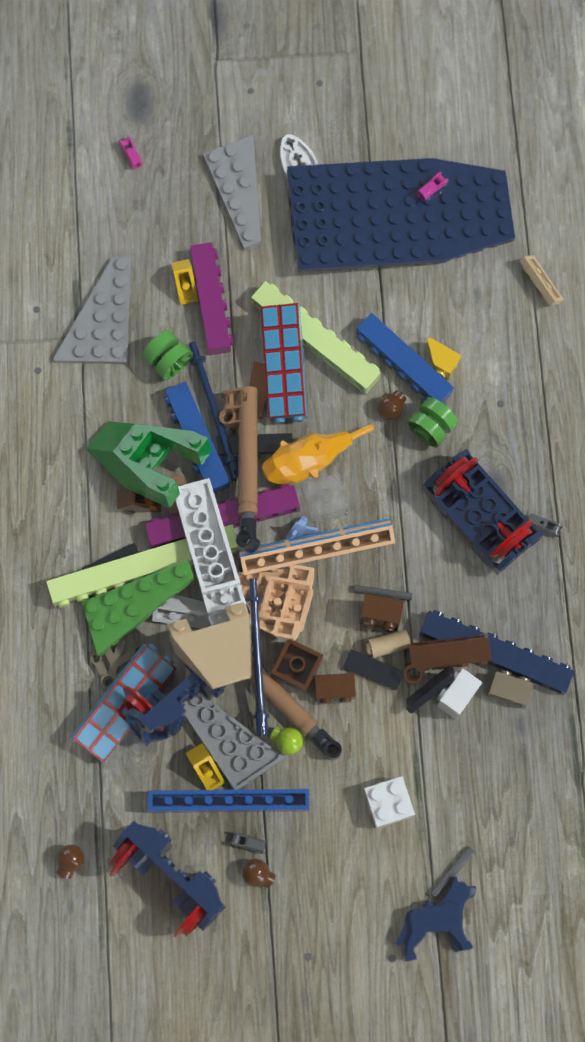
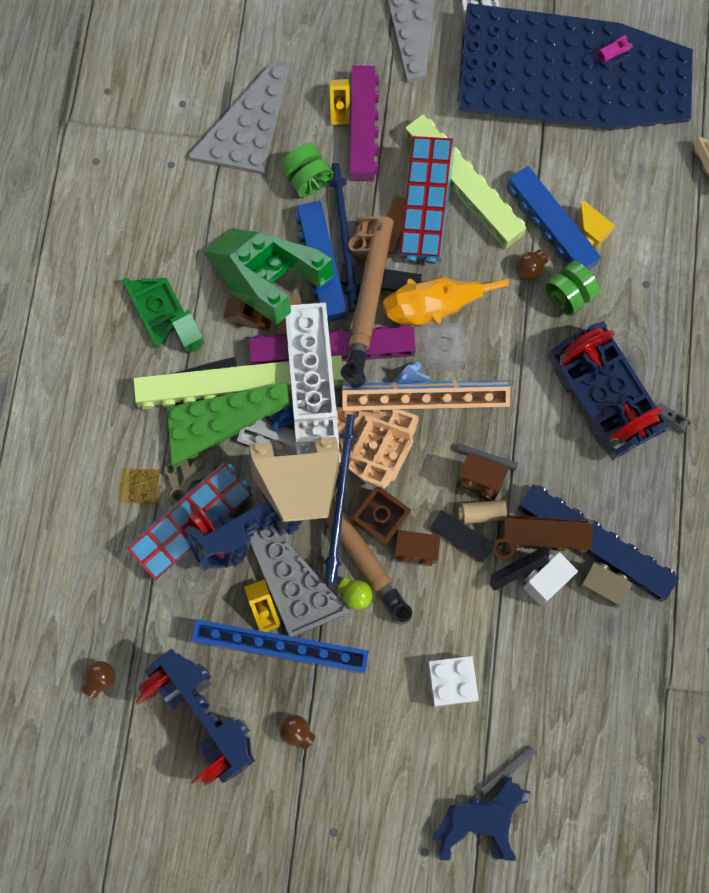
camera: 10 degrees right, 0 degrees up
(52, 508) = (155, 305): none -> green wing
(71, 679) = (140, 486): none -> clear yellow piece
(87, 528) = (187, 332): none -> slope
(190, 592) = (282, 418): none -> blue animal
(251, 843) = (296, 697): dark grey bar -> none

